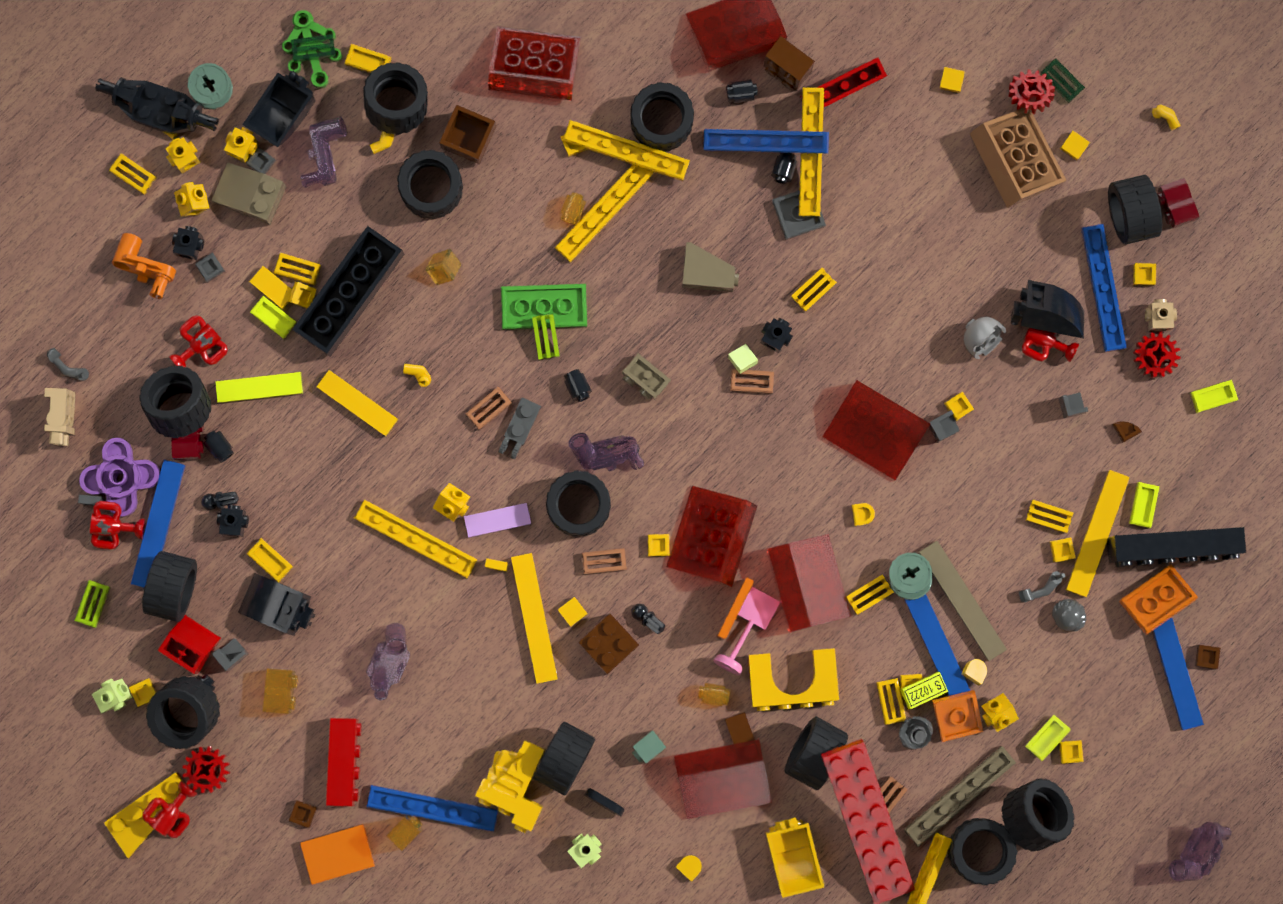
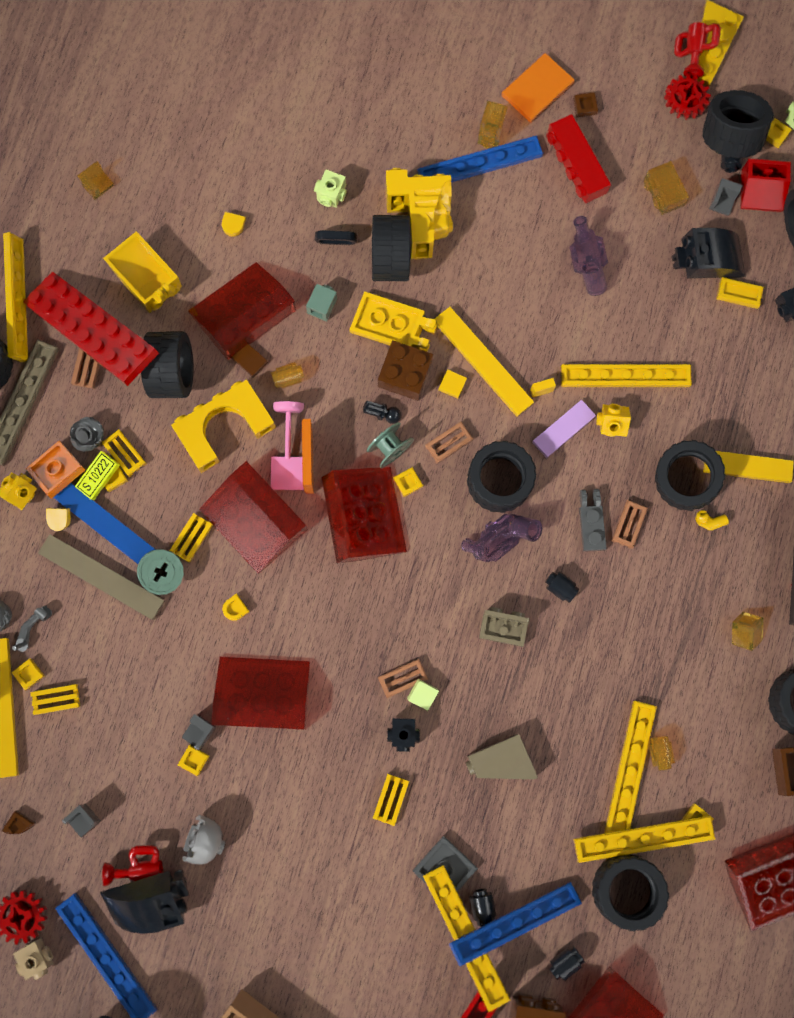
camera: 150 degrees right, 5 degrees down
(441, 407) = (695, 449): none -> black tyre
(548, 354) = (605, 602): lime tile -> none
(564, 301) = (633, 645): bright green tile -> none
(597, 696) = (390, 320): none -> yellow tile
(658, 581) = (390, 444): none -> sand green piece
(1144, 274) = (71, 995): yellow tile -> none

